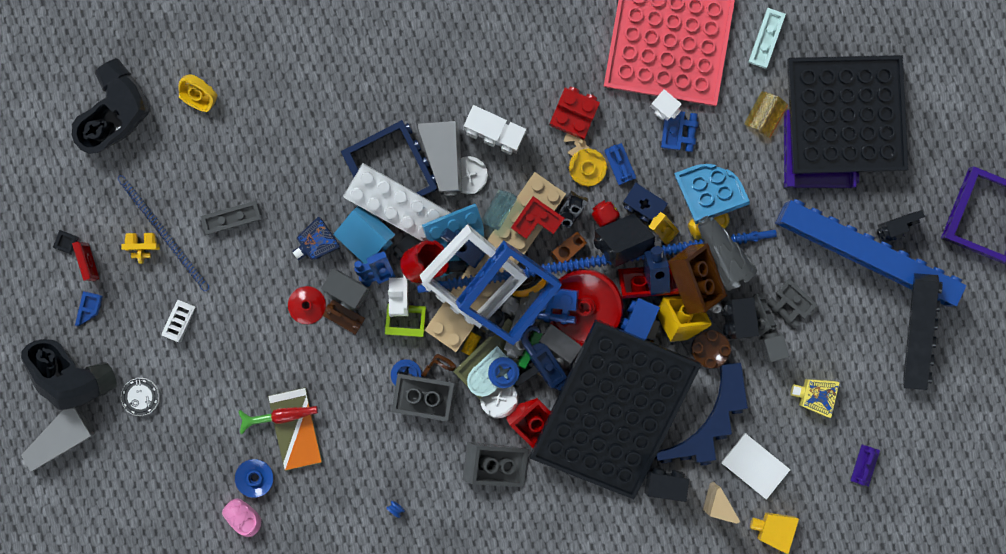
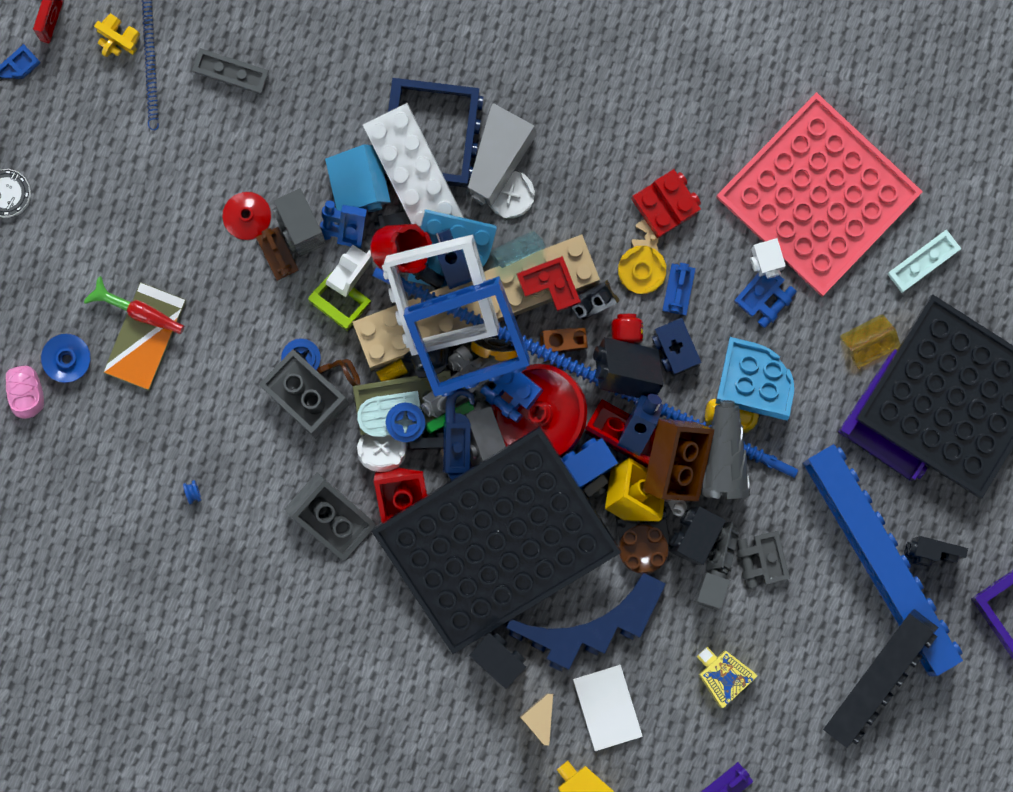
camera: 30 degrees right, 5 degrees down
(178, 338) = (88, 139): white slope -> none
(316, 241) = (302, 154): torso -> none
(494, 130) = (567, 163): white piece -> none
(663, 228) = (679, 386): yellow plate -> none

